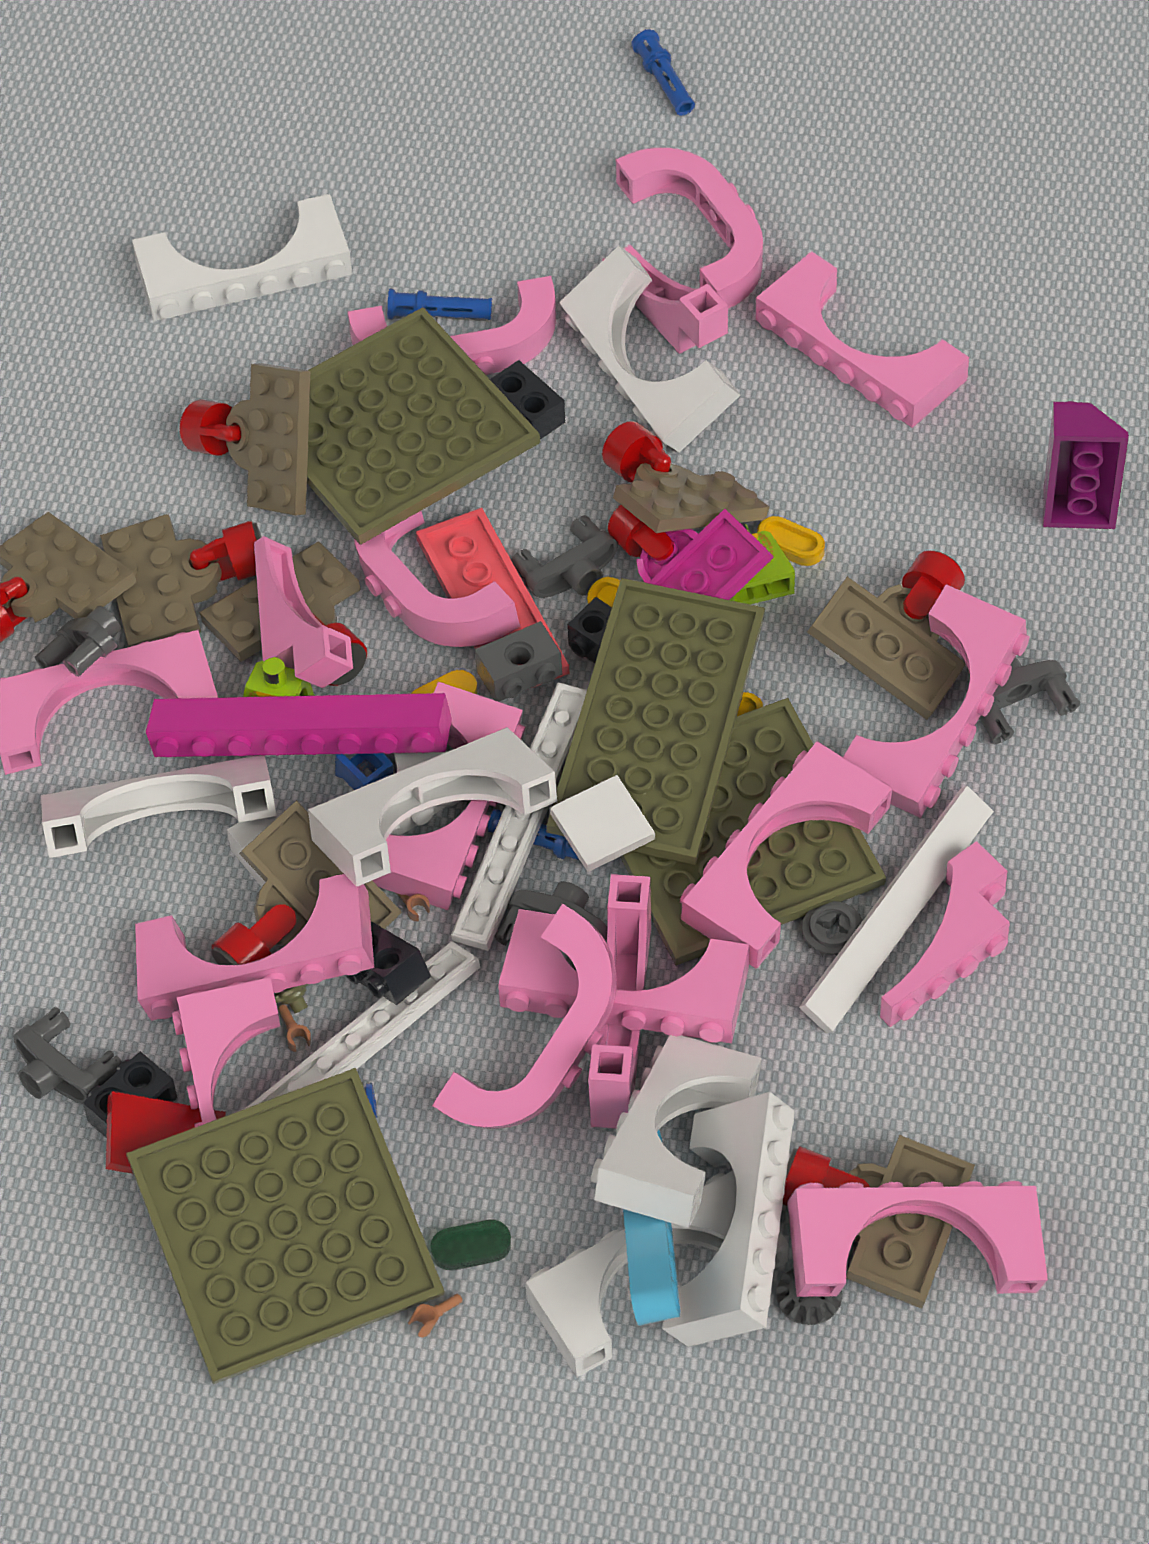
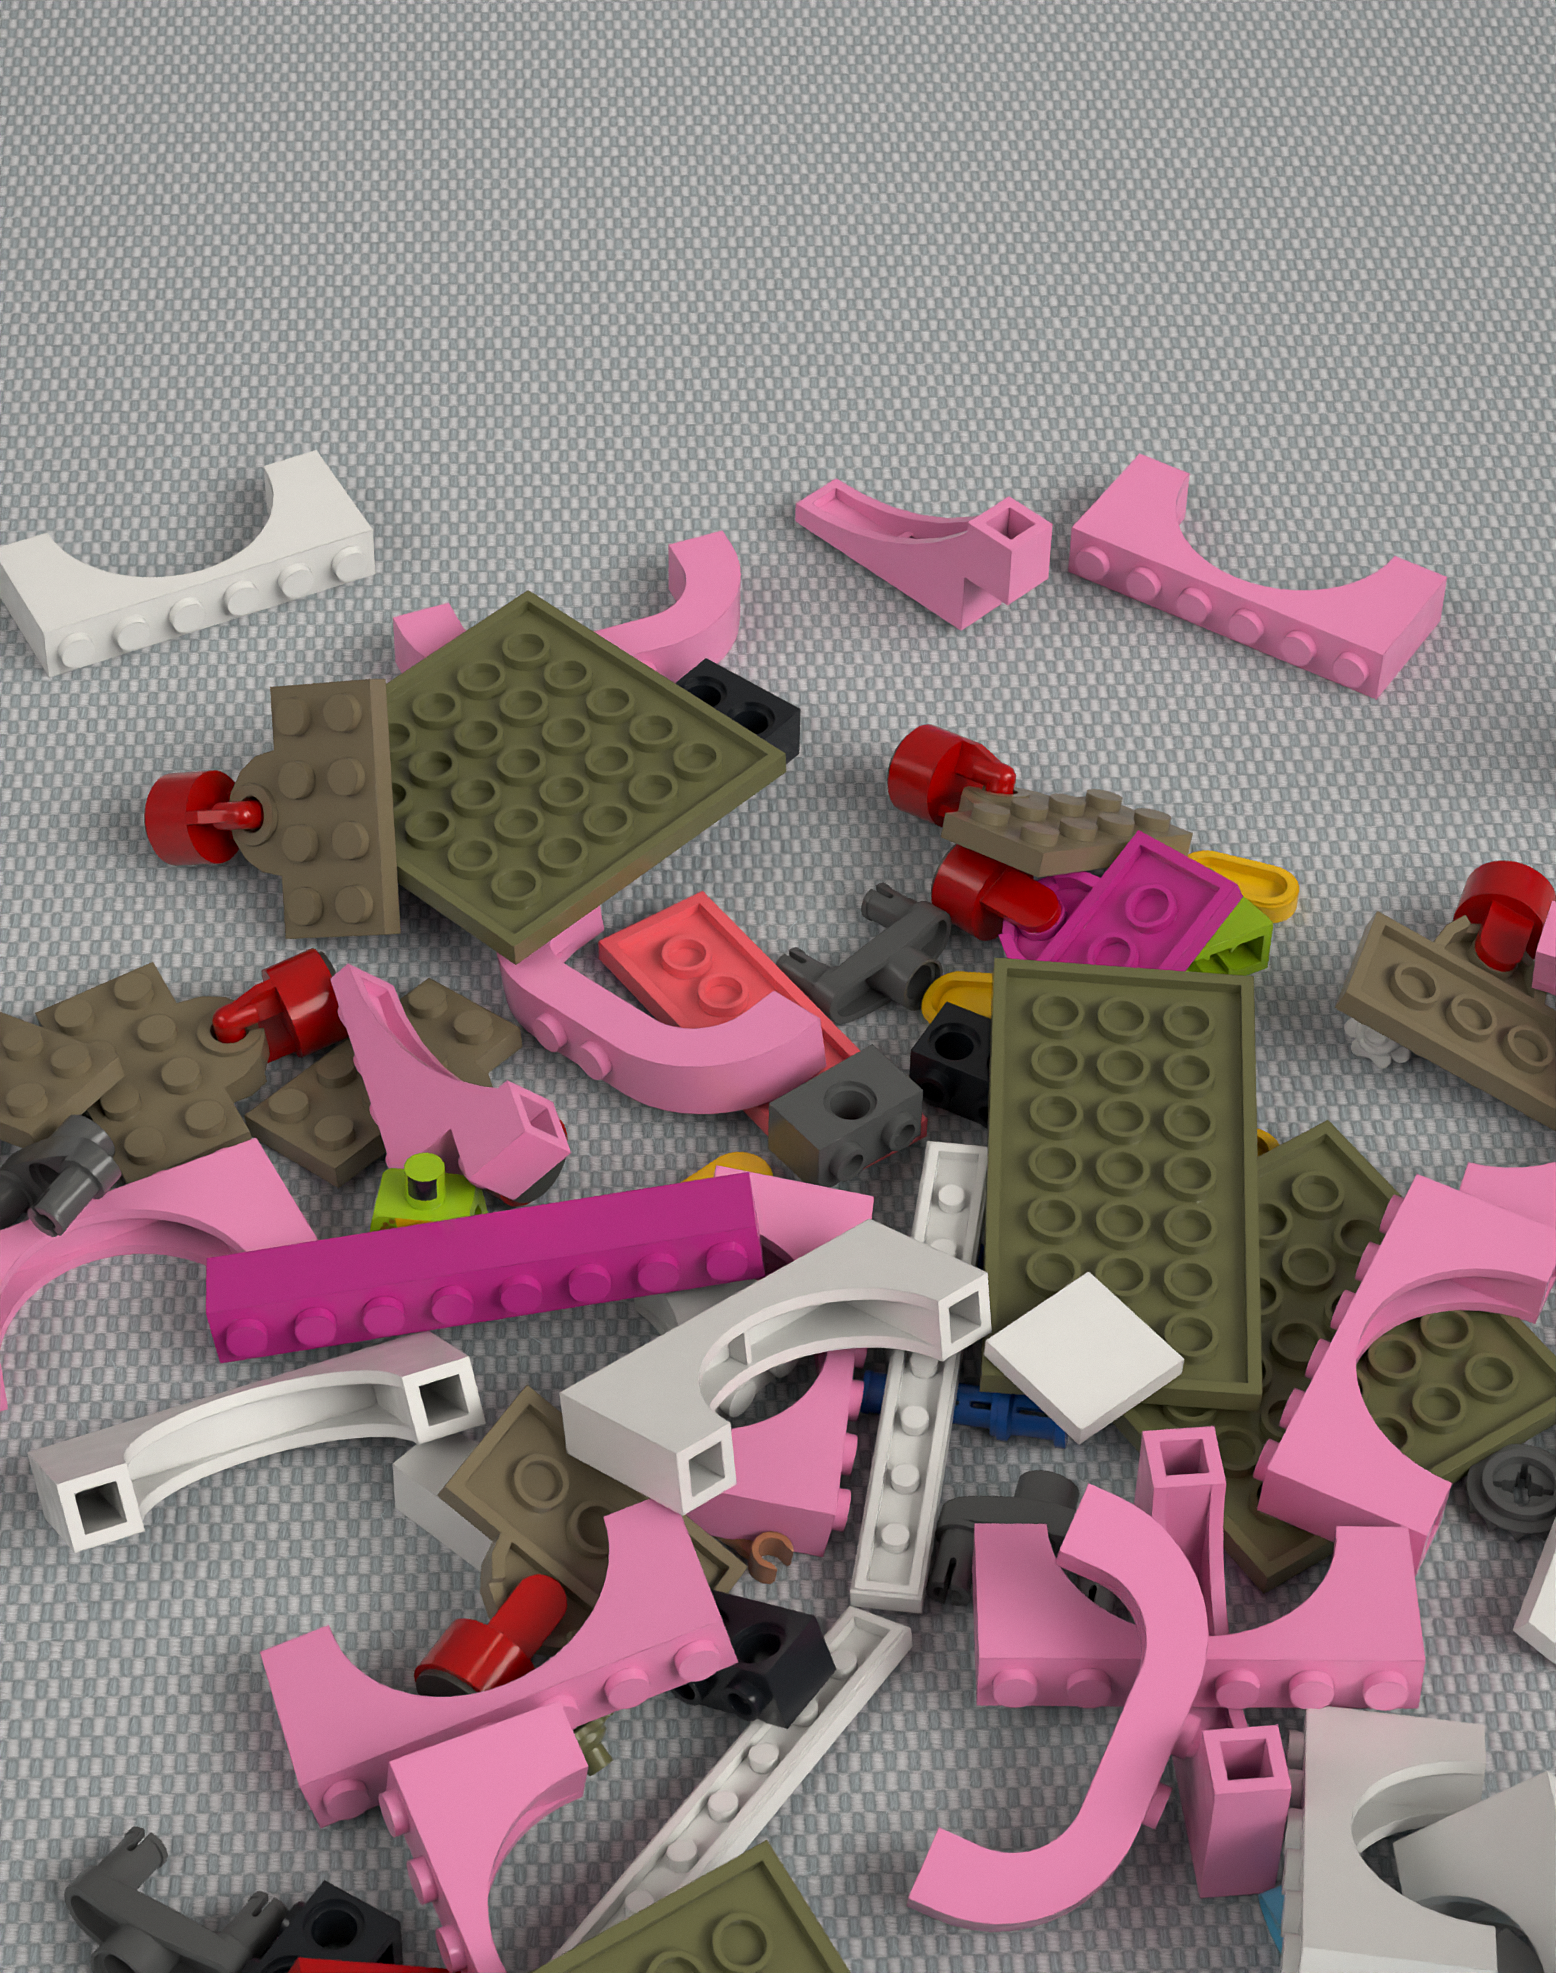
camera: 15 degrees left, 10 degrees down
(293, 1028) = (603, 1805): nougat hand -> none
(362, 769) = (608, 1331): blue window -> none
(437, 306) = (610, 596): blue pin -> none
(601, 310) = (821, 574): white arch -> none
(679, 98) = (798, 225): blue pin -> none
(689, 175) = (940, 392): bright pink arch -> none

